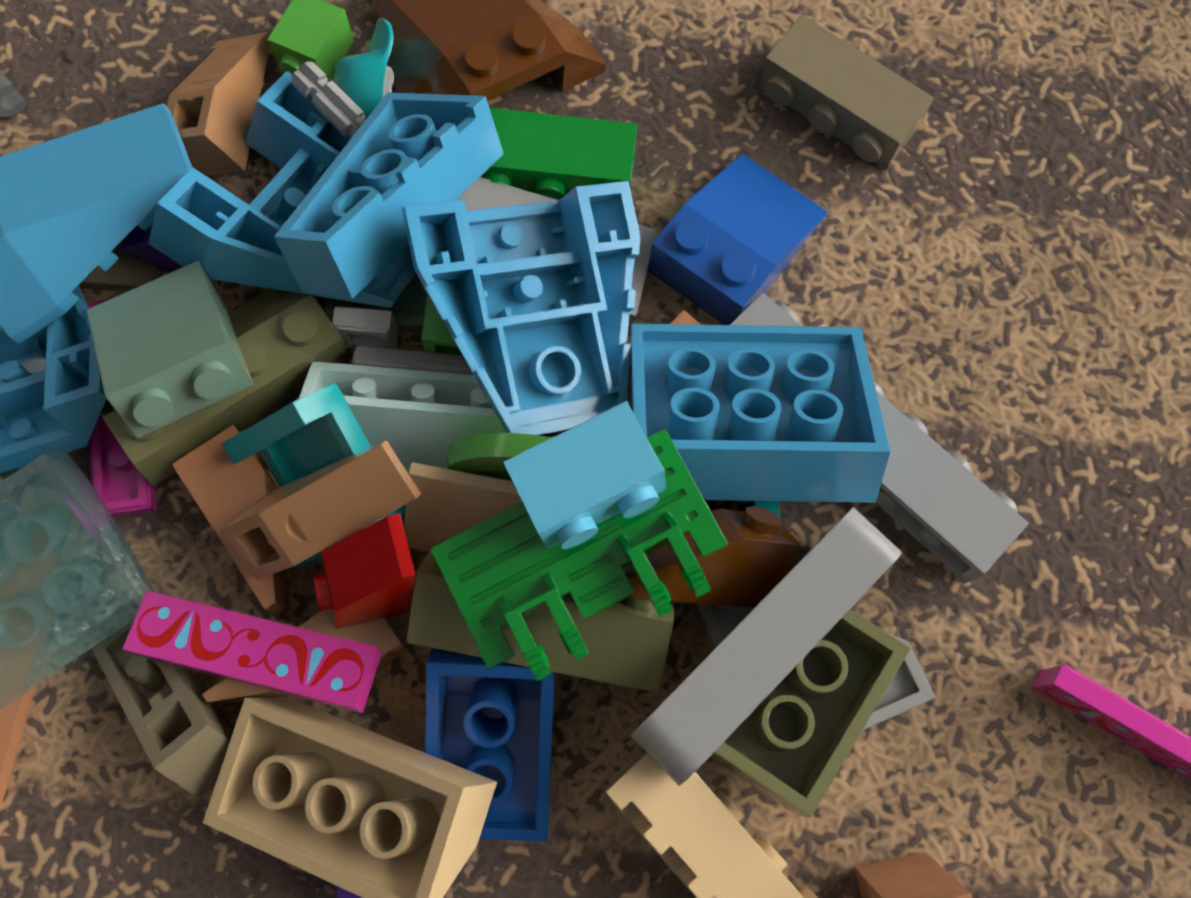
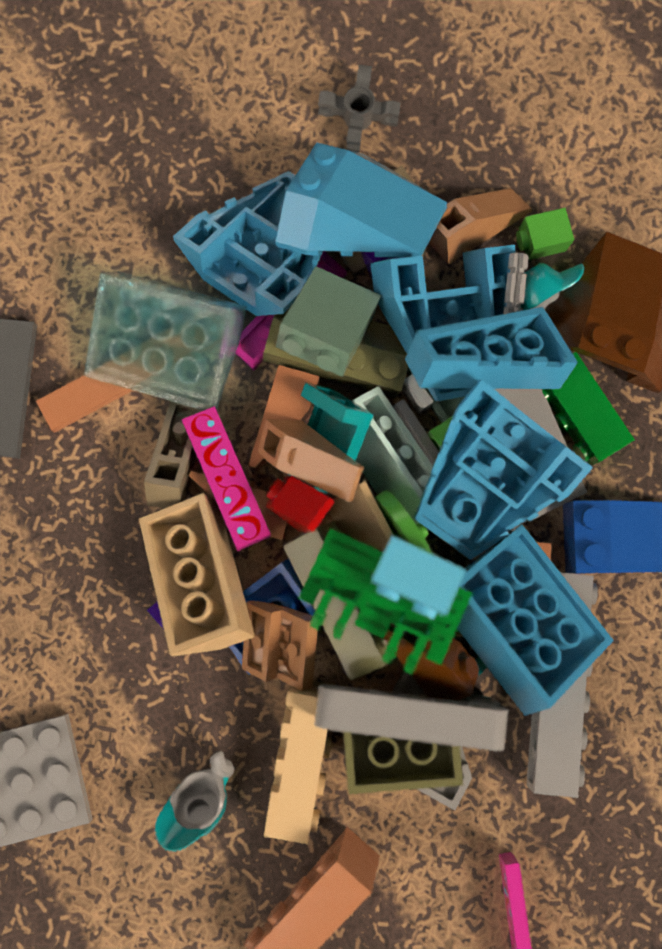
camera: 55 degrees right, 10 degrees up
(539, 755) = (281, 646): none -> medium nougat slope

